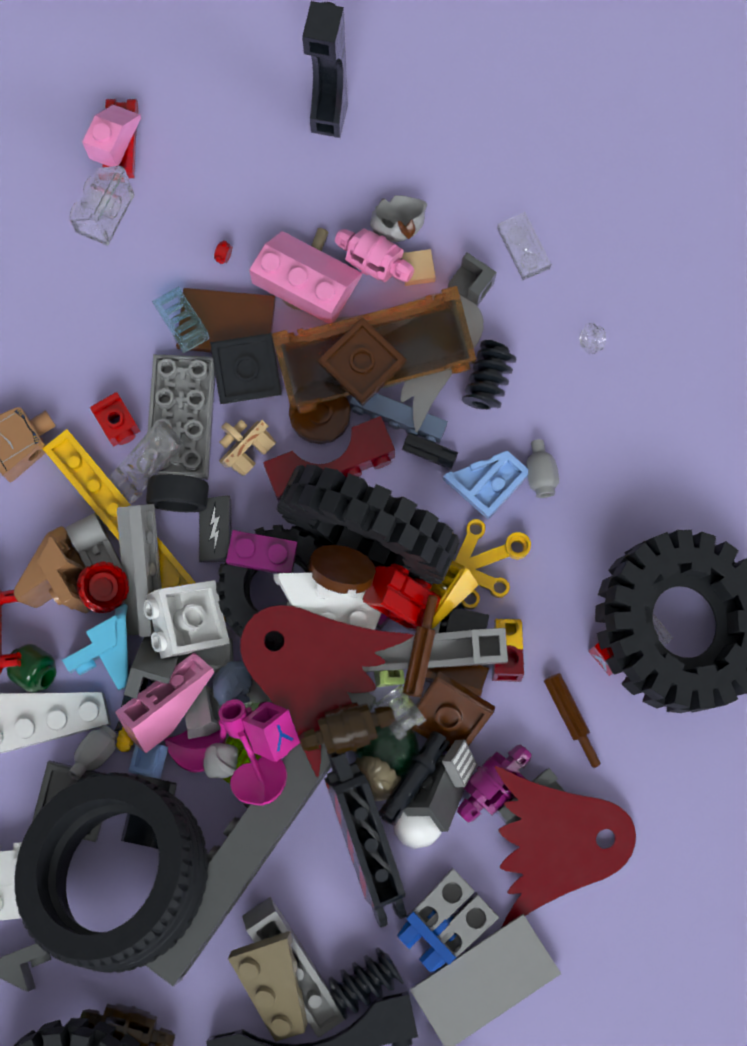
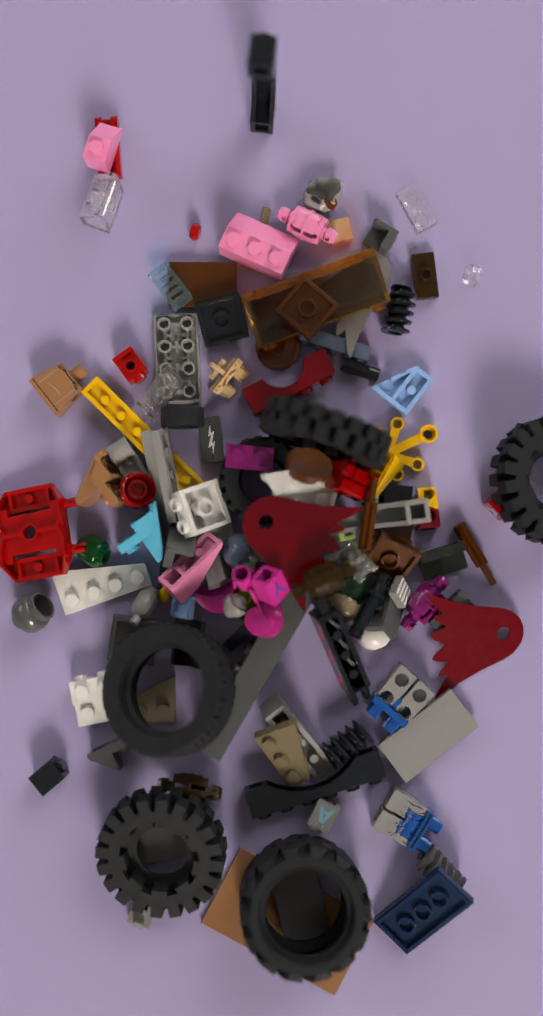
camera: 10 degrees left, 10 degrees up
(98, 896) = (159, 702): none -> dark tan wing
(220, 811) = (236, 638): none -> black beam
(526, 725) = (443, 560): none -> pearl dark grey panel
(528, 334) = (424, 276): none -> dark brown plate
(542, 471) = (442, 377): light grey plant -> none

